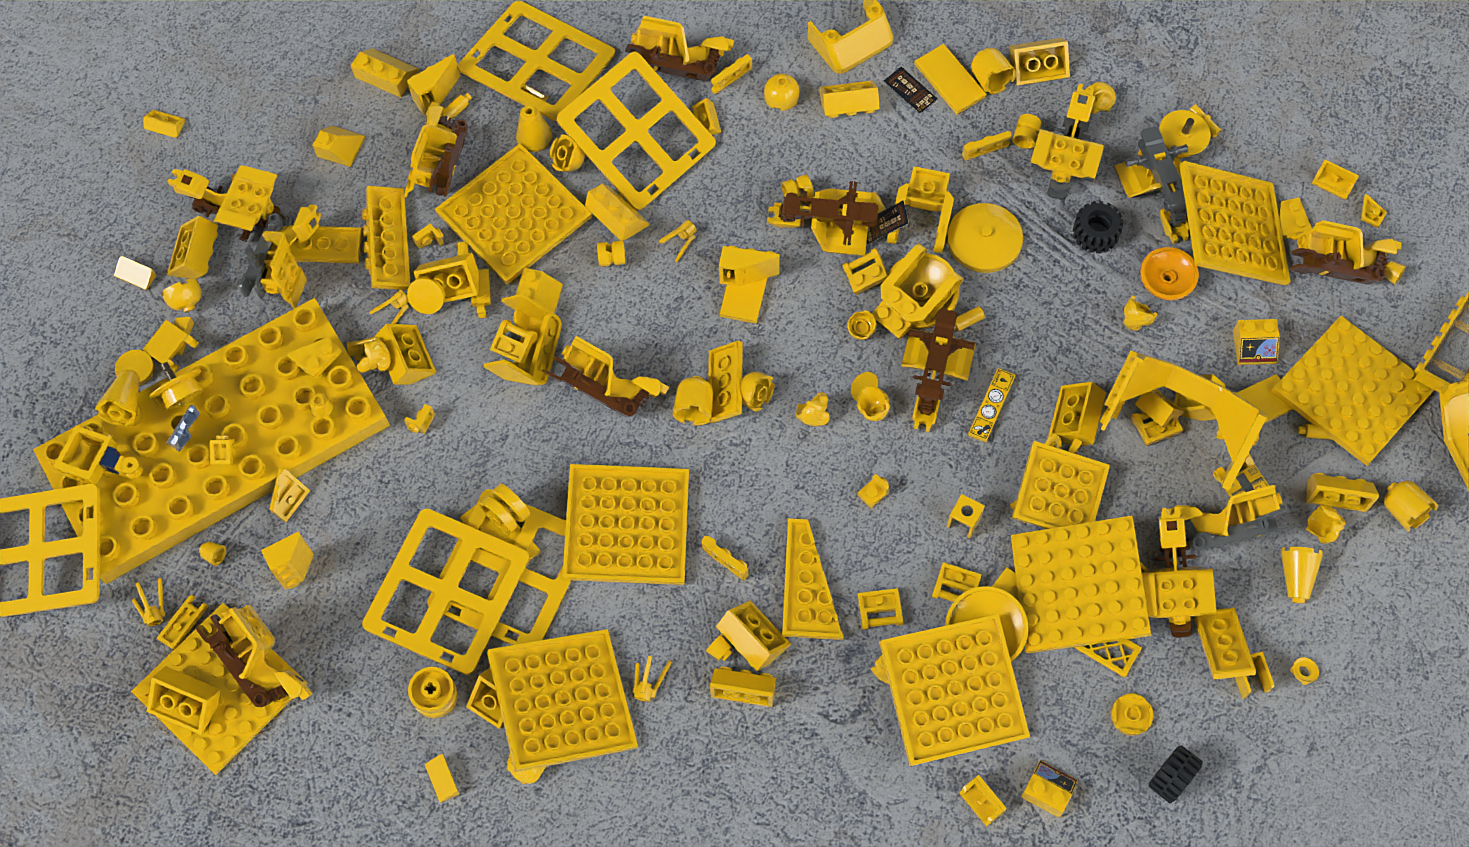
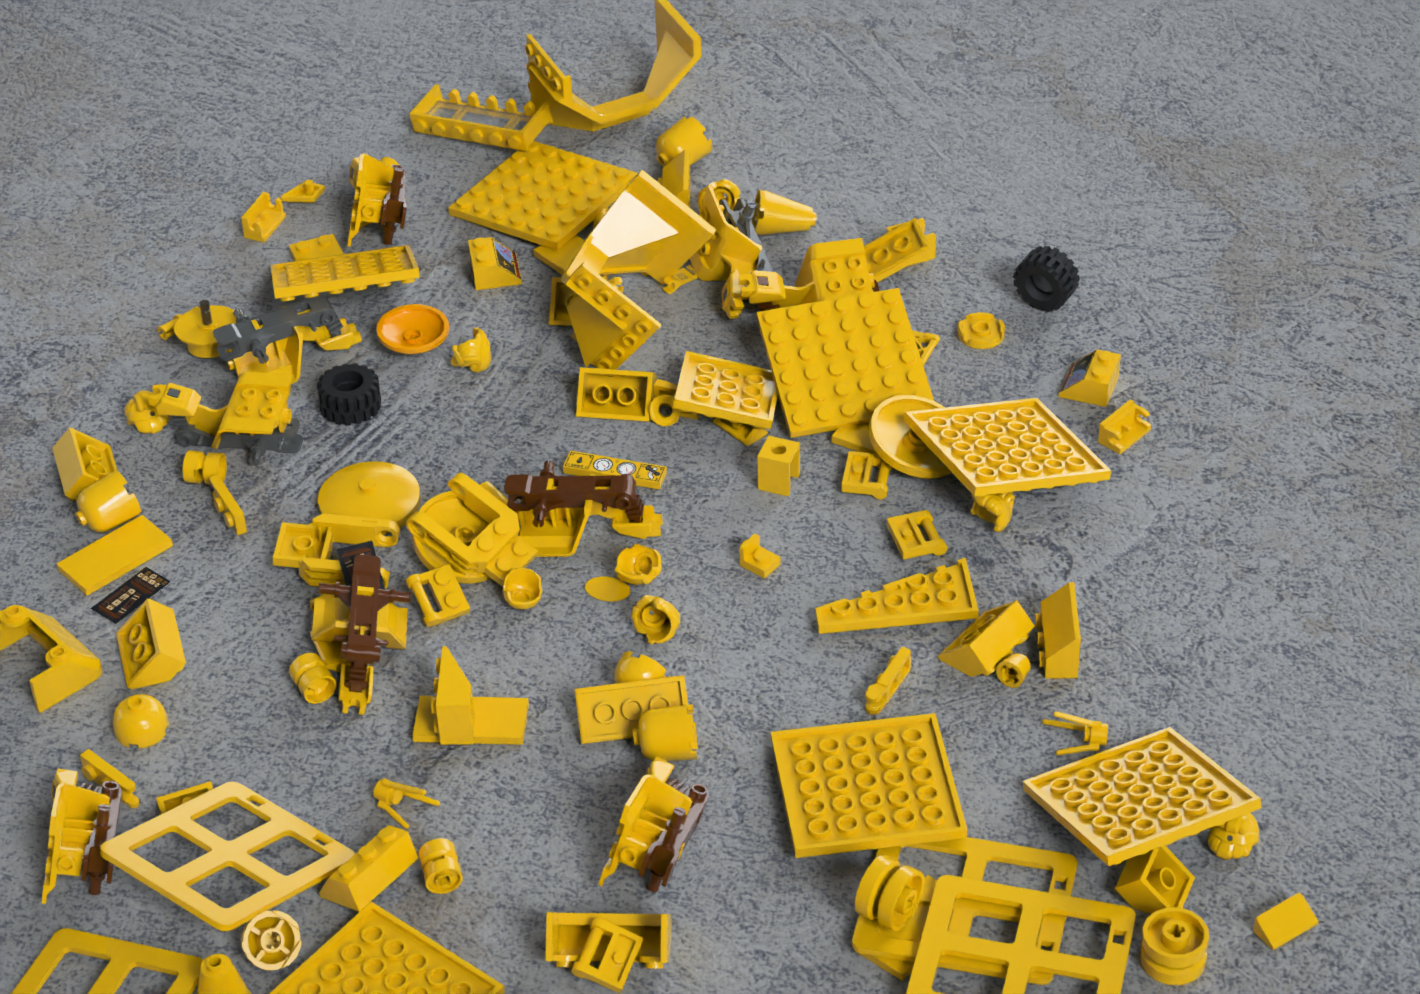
camera: 100 degrees left, 25 degrees down
(540, 288) = (516, 951): yellow slope -> none
(1310, 665) = (891, 209): yellow piece -> none

